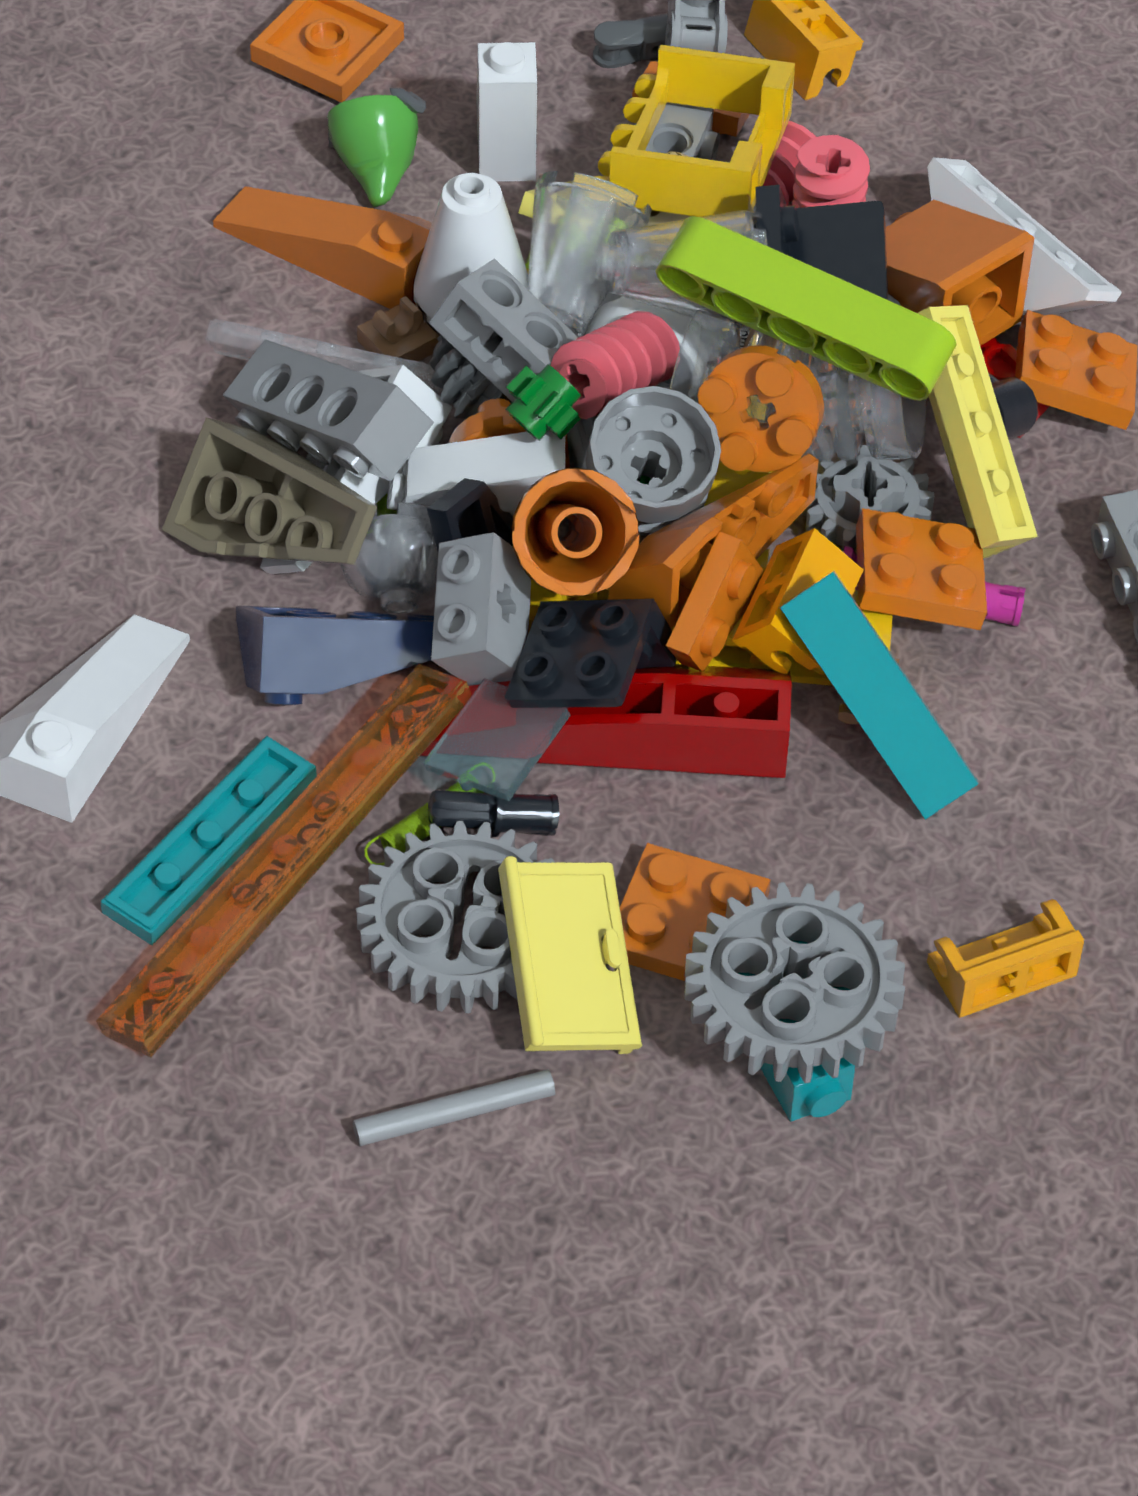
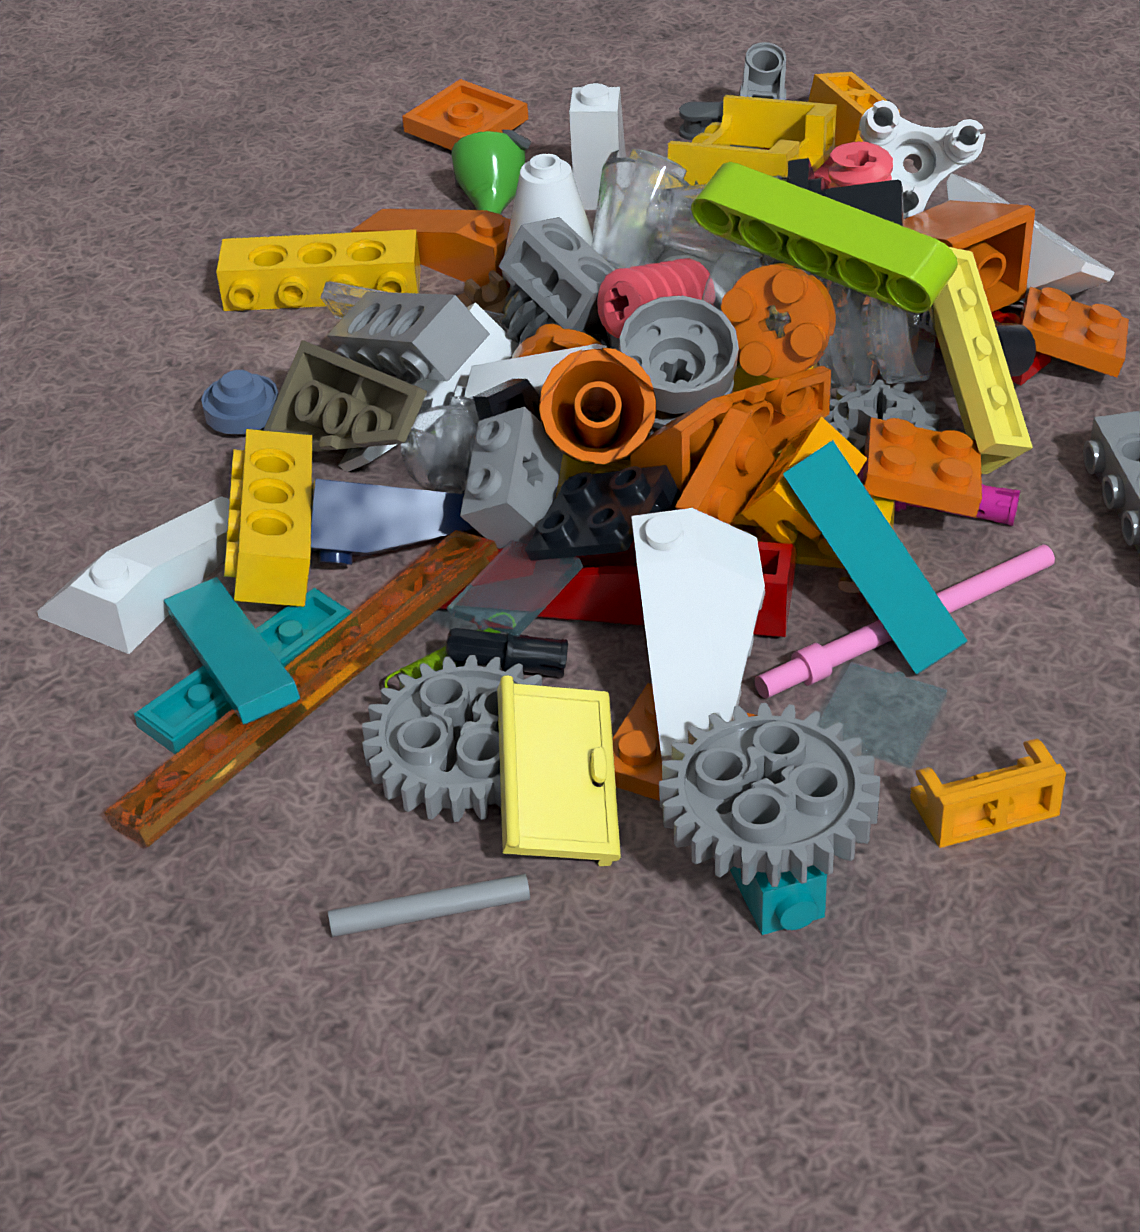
camera: 10 degrees right, 10 degrees down
(133, 488) = (239, 402): none -> sand blue plate
(184, 287) = (294, 268): none -> yellow brick
(195, 822) = (232, 650): none -> teal tile
(209, 652) = (270, 518): none -> yellow brick
(543, 402) = (586, 318): green gear -> none
(702, 777) = (699, 614): none -> white wedge
(821, 808) = (817, 661): none -> bright pink bar
(891, 866) = (884, 712): none -> clear light blue piece
(915, 135) = (933, 150): none -> white wheel

